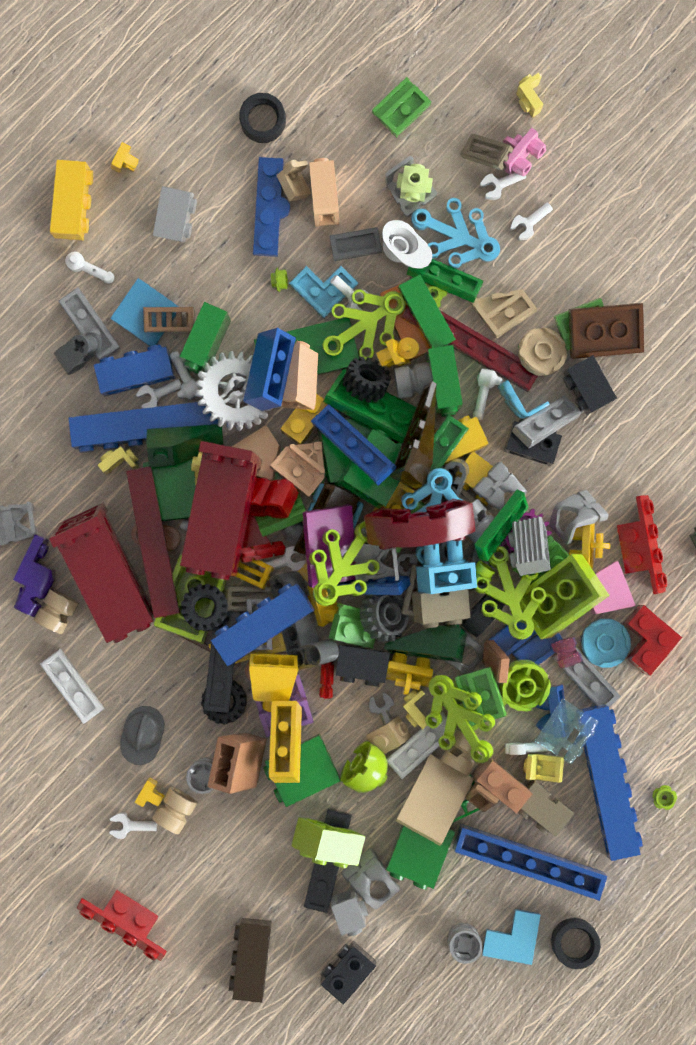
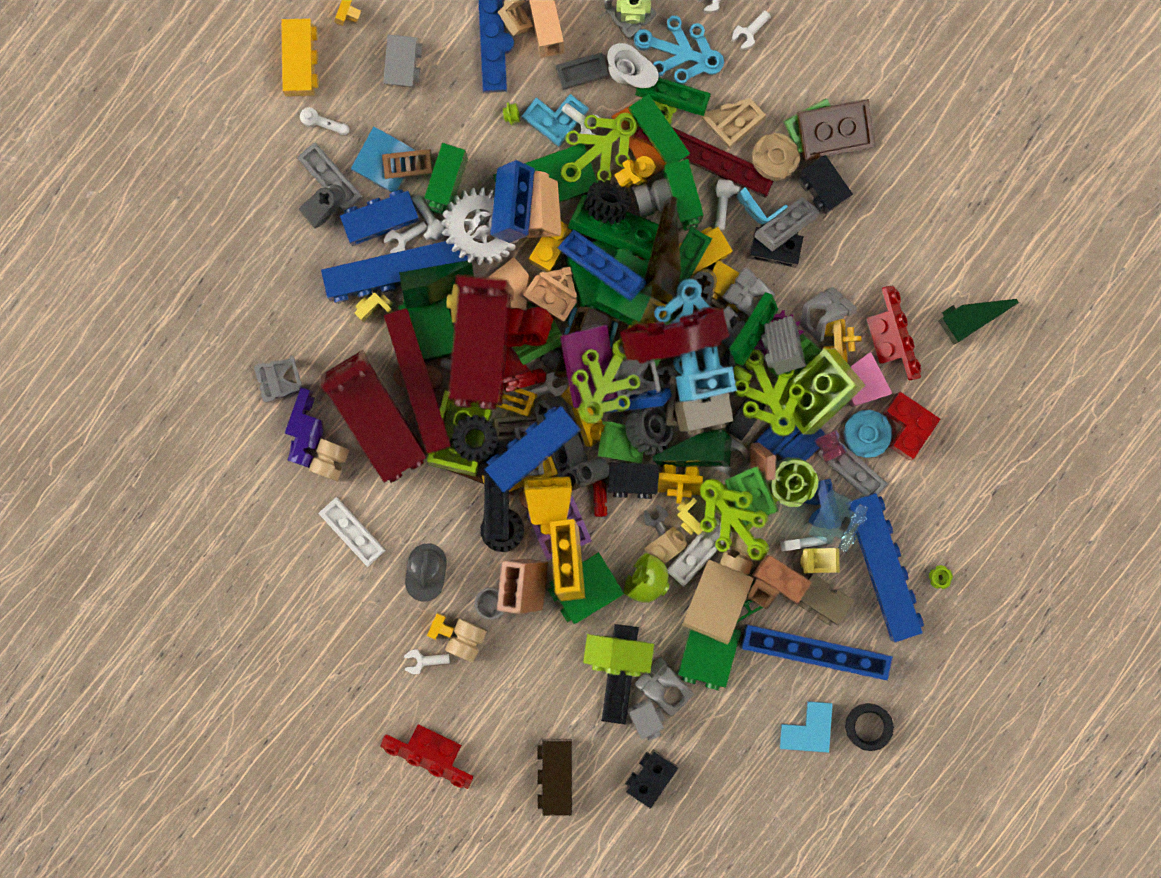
camera: 10 degrees left, 0 degrees up
(464, 943) = (761, 737): light grey wheel -> none

